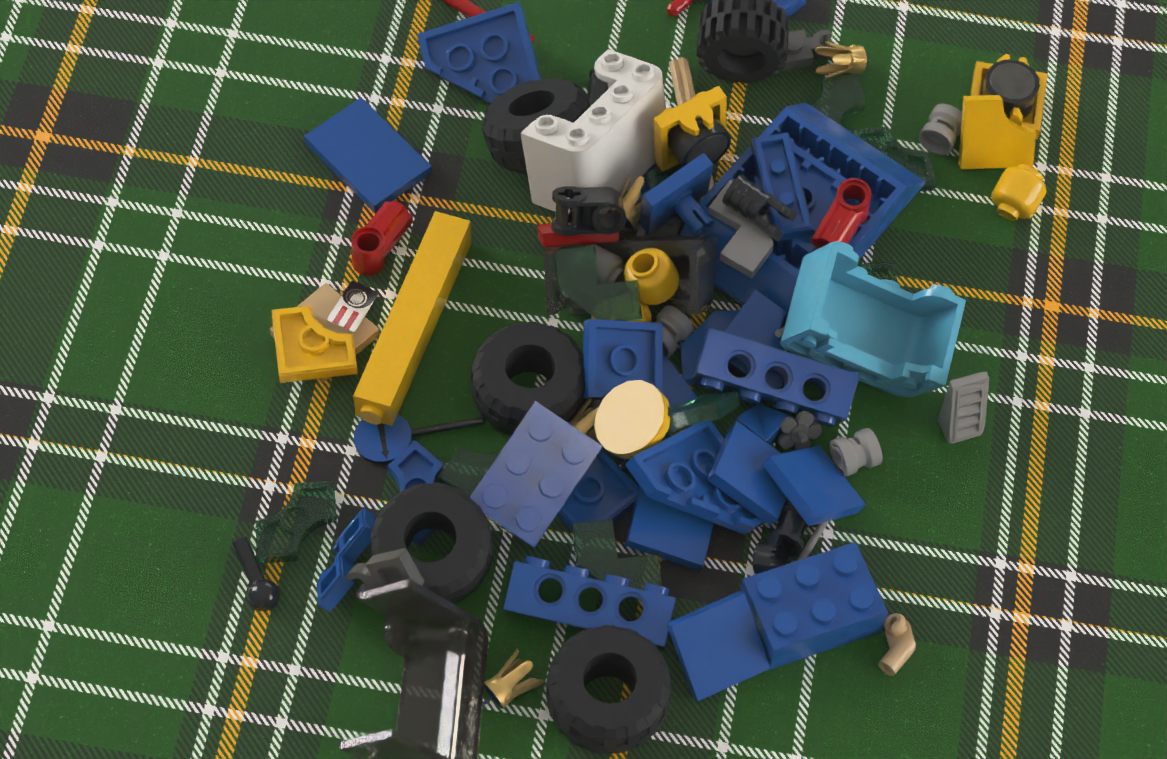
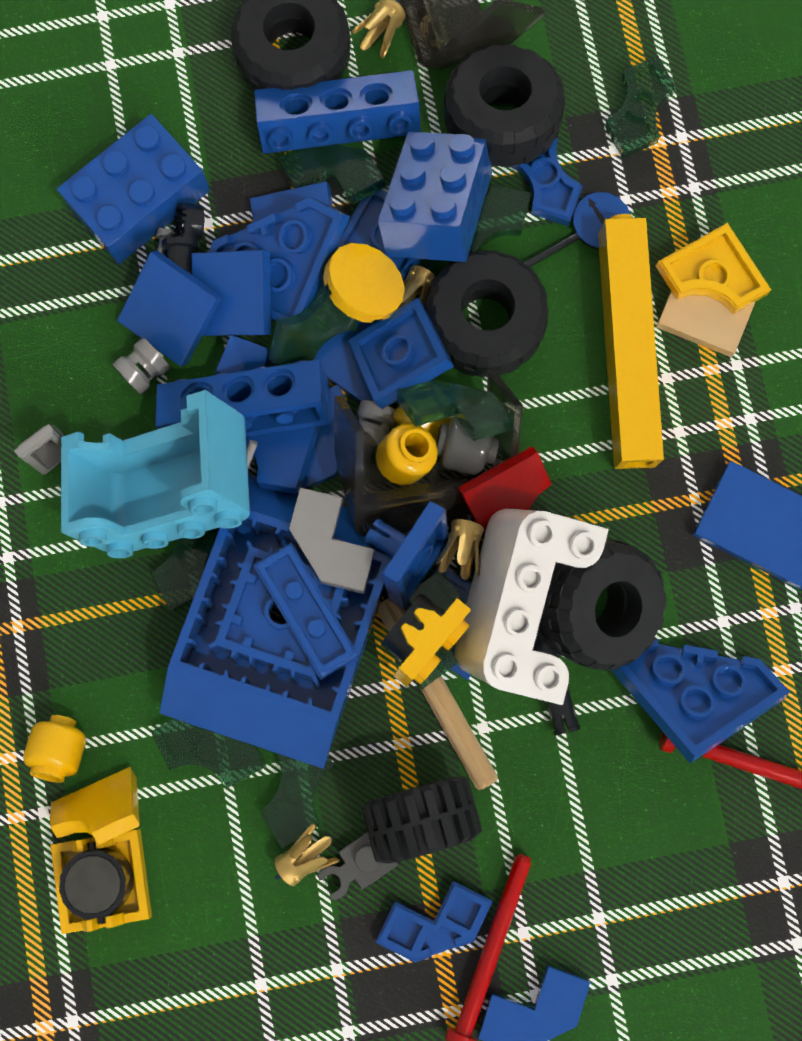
camera: 165 degrees right, 20 degrees up
(262, 593) = (637, 33): black bar -> none
(350, 544) = (579, 61): blue tile -> none
(352, 306) = (695, 334): sticker -> none
(380, 237) = (707, 426): red piece -> none
(385, 570) = (521, 34): dark grey plate -> none
(585, 209) = (495, 489): black piece -> none
(718, 645) = (208, 114): blue tile -> none
(754, 204) = (316, 554): black hinge -> none
(797, 432) = (203, 365): dark grey plant -> none
(841, 218) = (223, 580): red piece -> none
(900, 642) = (44, 194): tan arm -> none
(941, 131) = (158, 814): light grey wheel -> none

